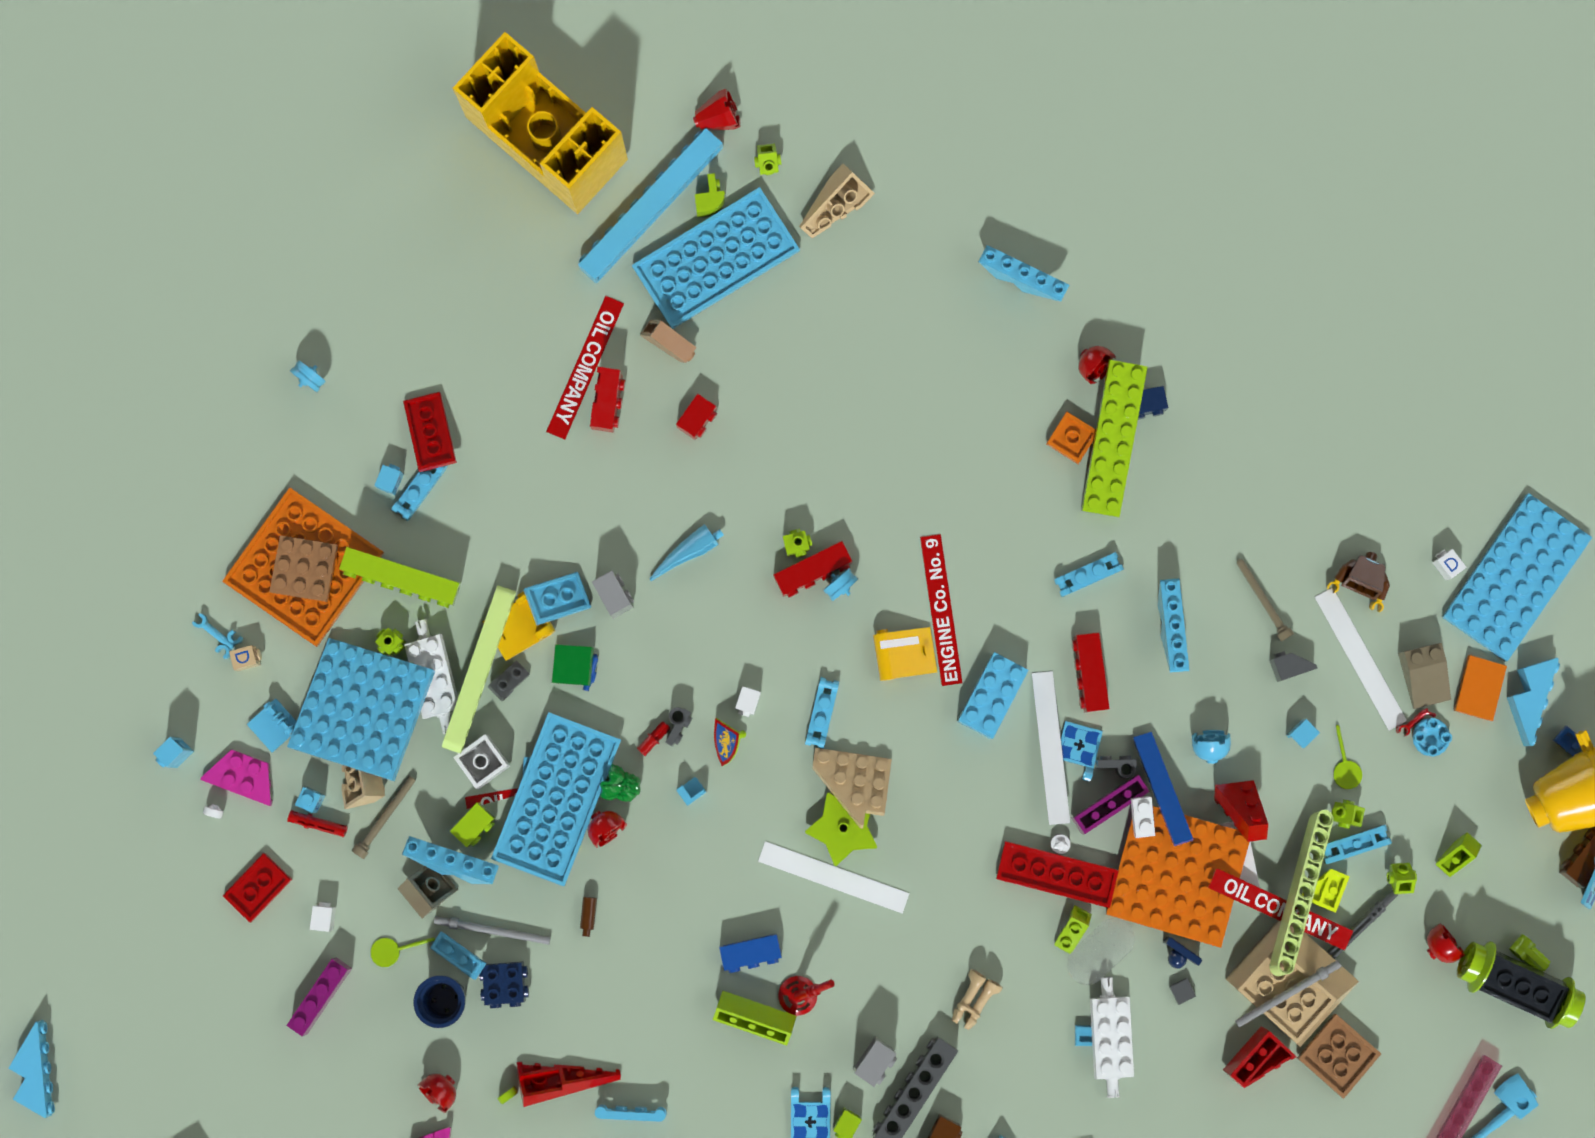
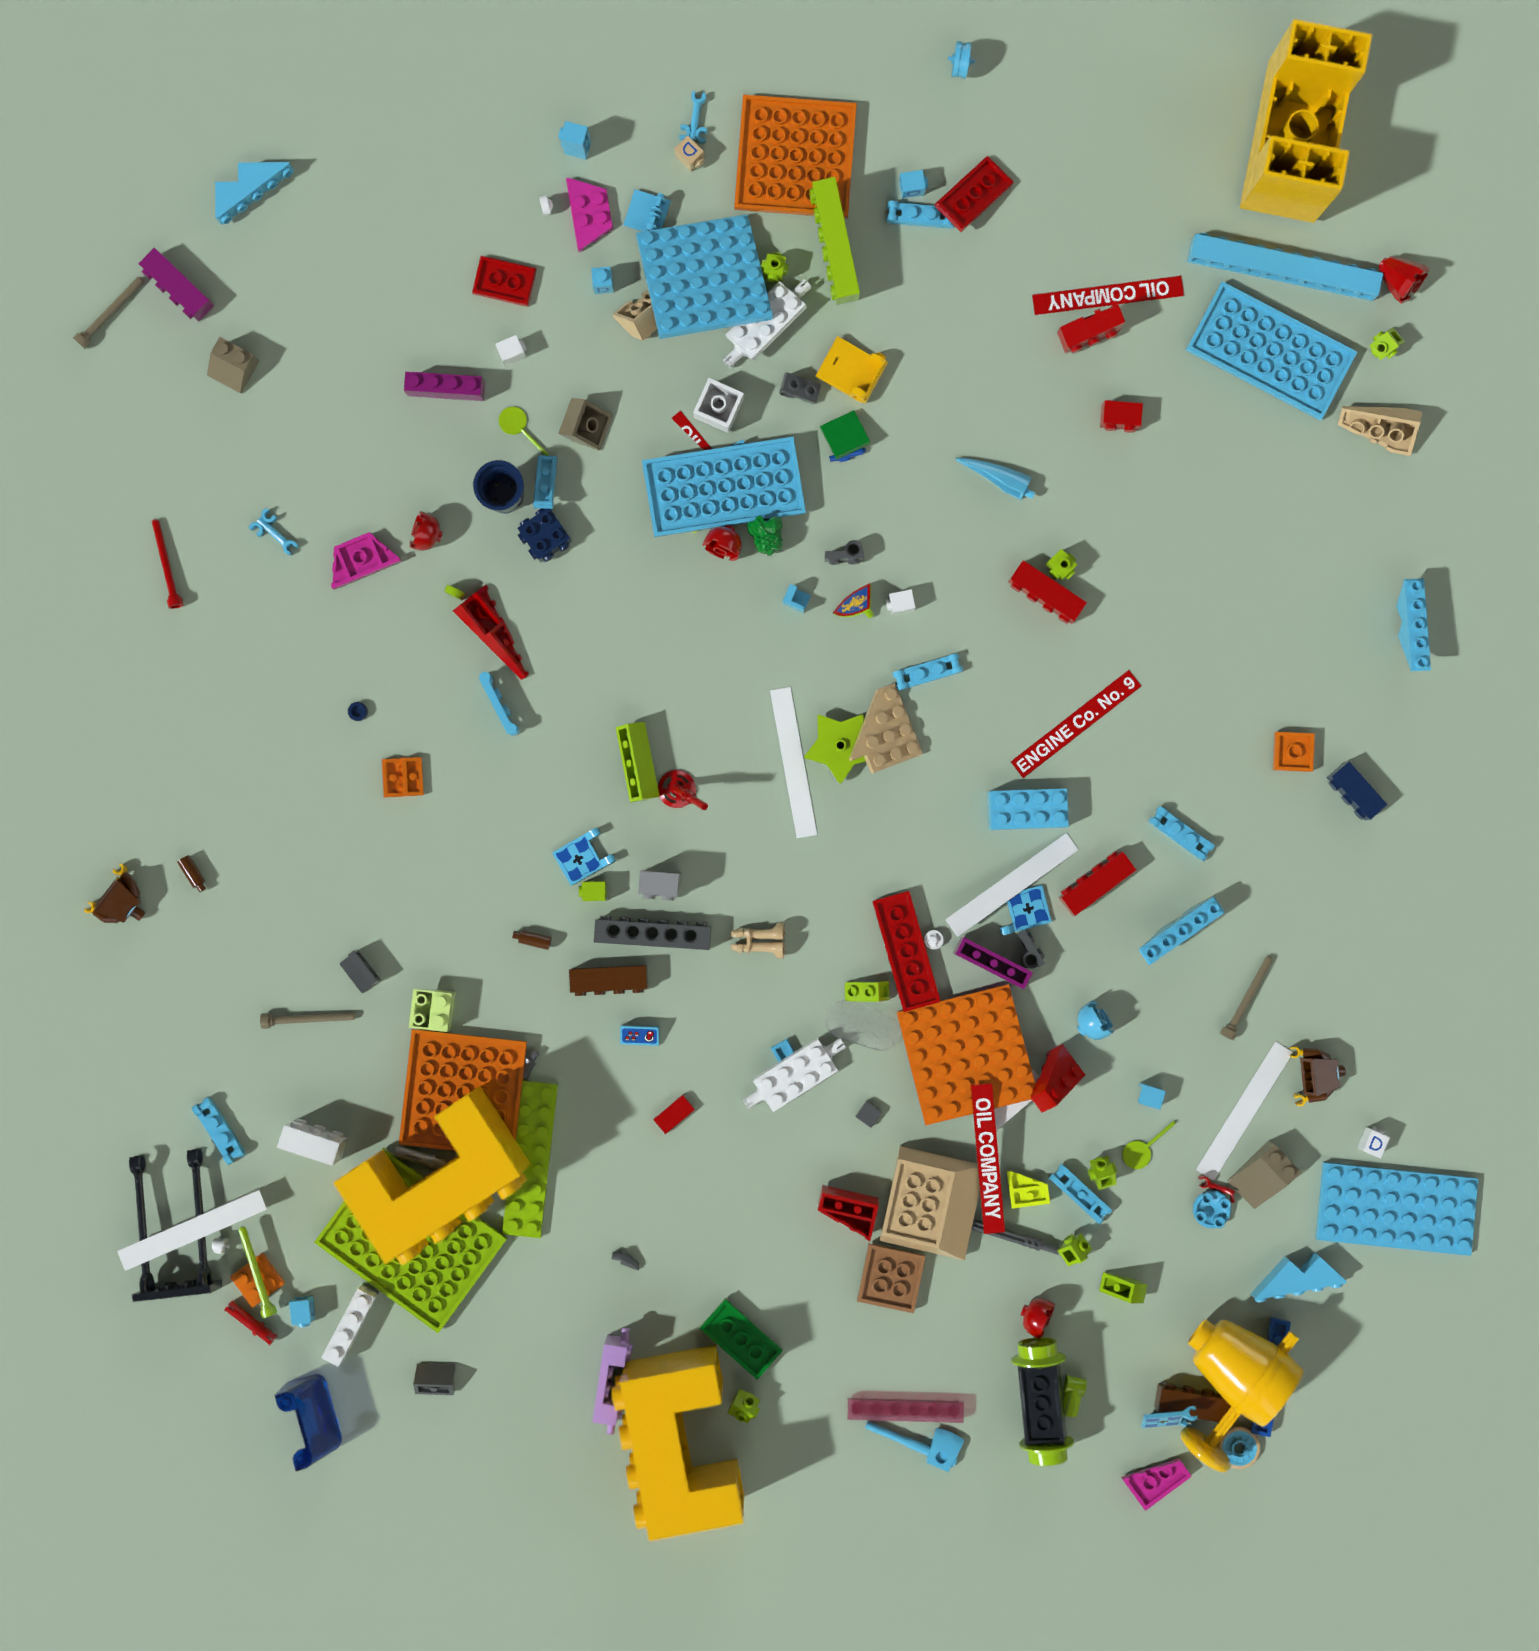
camera: 65 degrees right, 5 degrees up
(303, 568) = (794, 156): medium nougat plate -> none
(310, 821) = (584, 291): red pin -> none
(362, 848) = (587, 349): dark tan piece -> none
(450, 862) = (618, 427): medium azure slope -> none
(455, 923) = (570, 464): light grey bar -> none
(473, 824) = (661, 430): lime brick -> none
(479, 669) = (795, 355): yellowish green beam -> none
(557, 598) = (894, 387): medium azure tile -> none
(588, 915) = (641, 572): reddish brown cylinder -> none
(612, 594) = (926, 430): light grey brick -> none
(653, 738) = (822, 540): red axle -> none
(668, 341) = (1174, 352): medium nougat slope -> none
(711, 202) = (1318, 317): lime brick -> none
(750, 953) = (689, 727): blue brick -> none
(840, 584) = (1048, 623): medium azure wheel -> none
(902, 654) = (1018, 711): yellow door -> none
(1094, 363) = (1372, 735): red cylinder -> none
(1114, 438) = (1315, 787): lime plate -> none
(1142, 816) = (998, 995): white plate -> none
(1162, 789) = (1032, 1000): blue tile -> none
(1178, 956) = (896, 1094): dark blue tile -> none
(1290, 665) = (1203, 1052): dark grey slope -> none
(1295, 899) = (1004, 1168): yellowish green beam -> none
(1321, 973) = (953, 1223): light grey bar -> none
(1480, 688) = (1279, 1229): orange tile -> none

